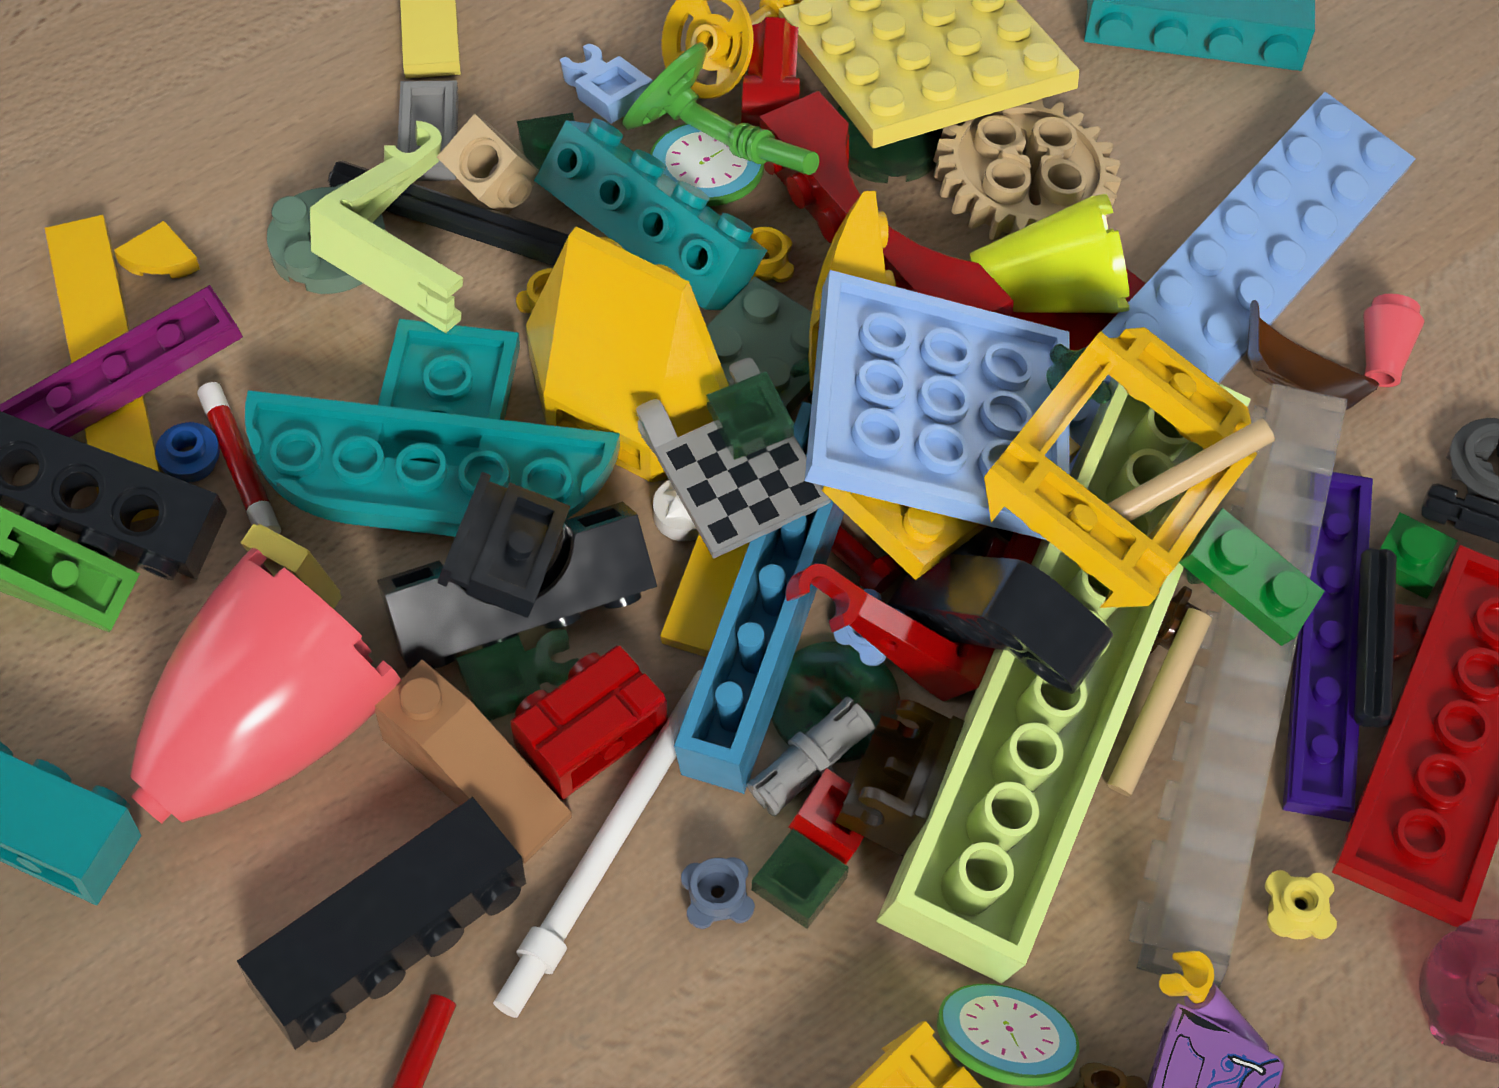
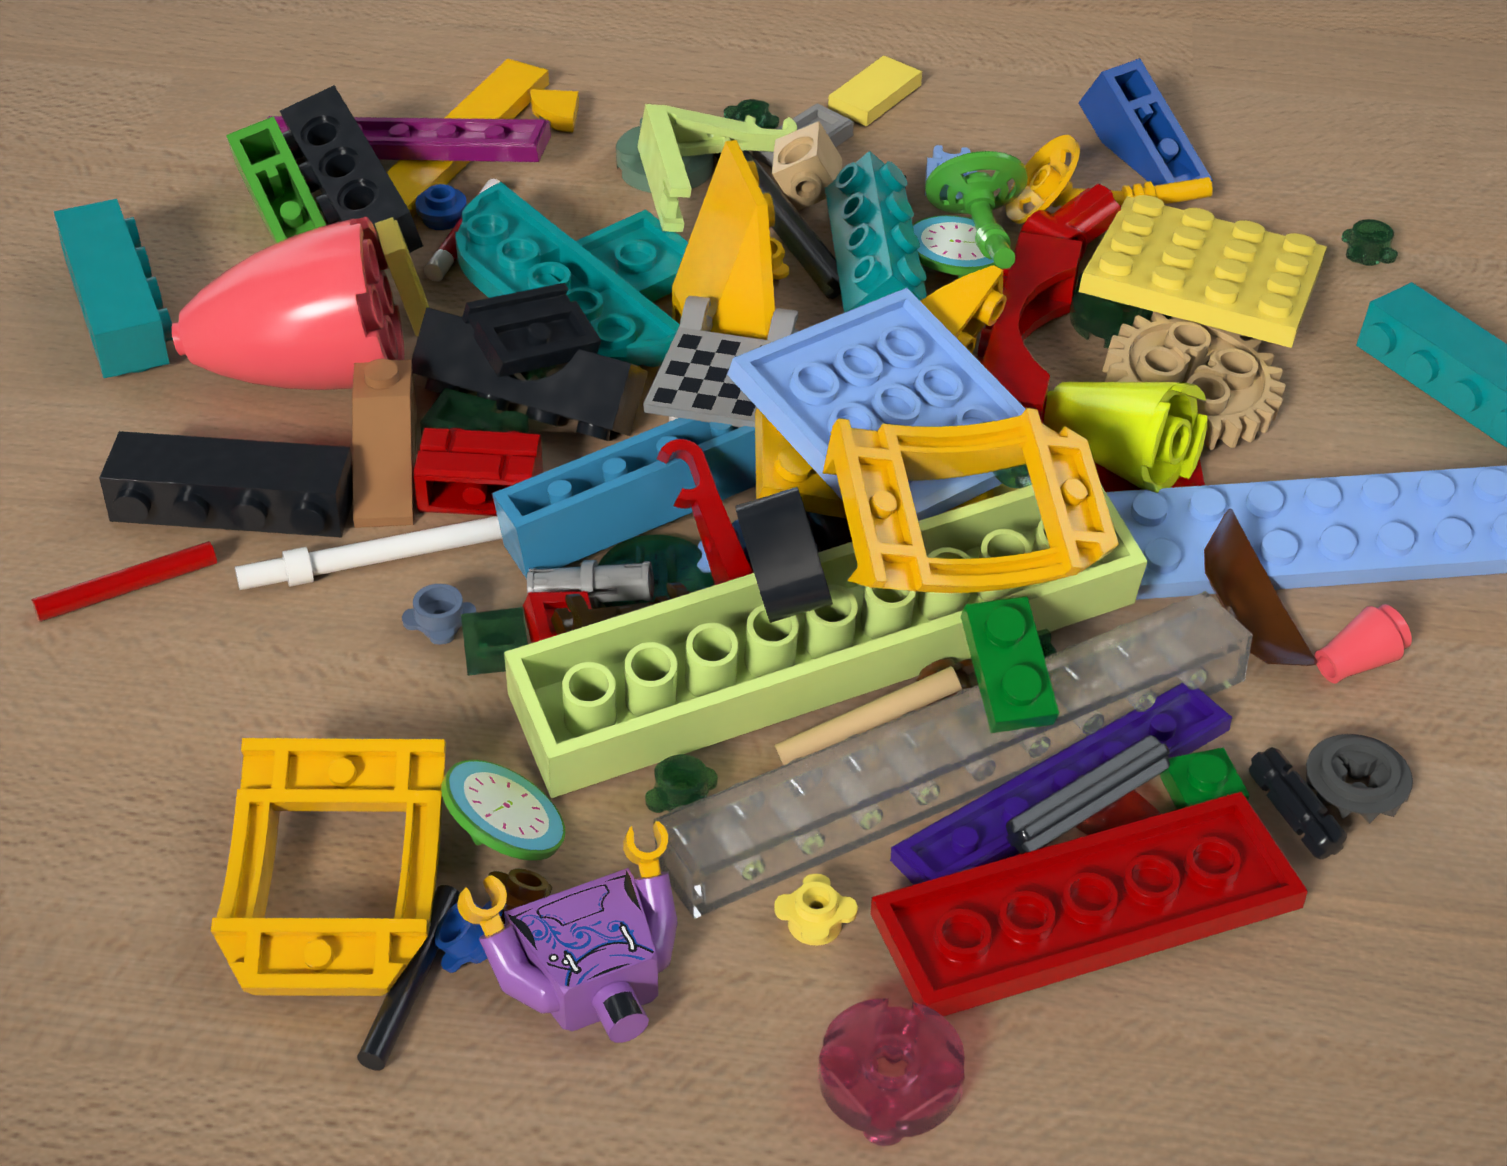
camera: 45 degrees right, 15 degrees down
(360, 140) = (755, 108): none -> clear green plate
(750, 415) = (748, 329): clear green plate -> none
(1099, 869) = (679, 783): none -> clear green plate
(1193, 470) = (1010, 542): tan bar -> none

